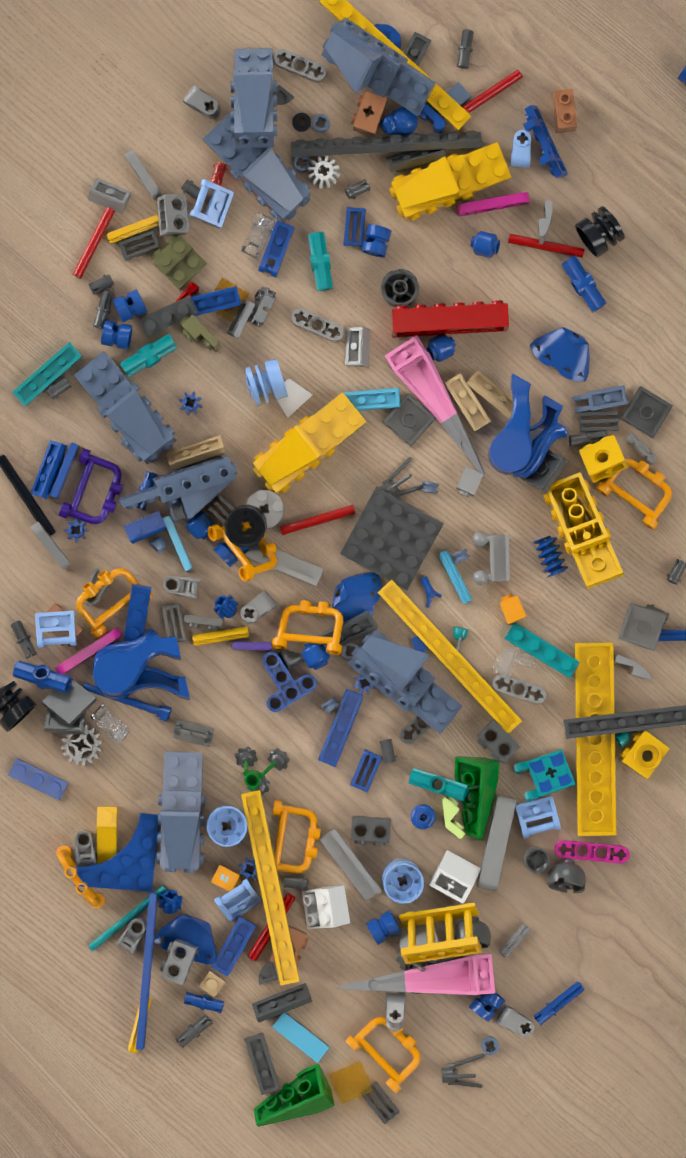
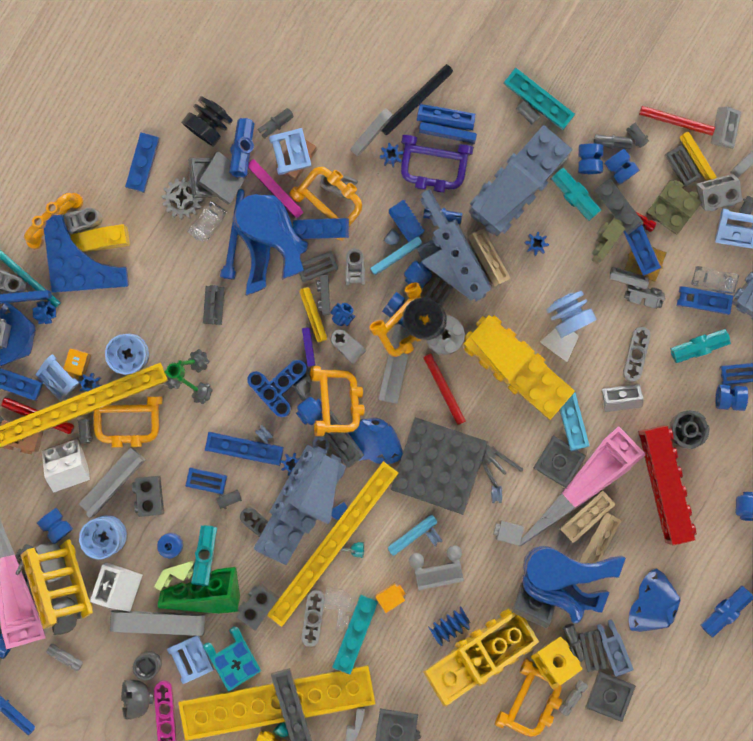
camera: 75 degrees right, 0 degrees up
(181, 812) = (132, 307): sand blue wedge -> none
(430, 592) = (394, 511): blue bar -> none
(441, 347) = (637, 481): blue head -> none

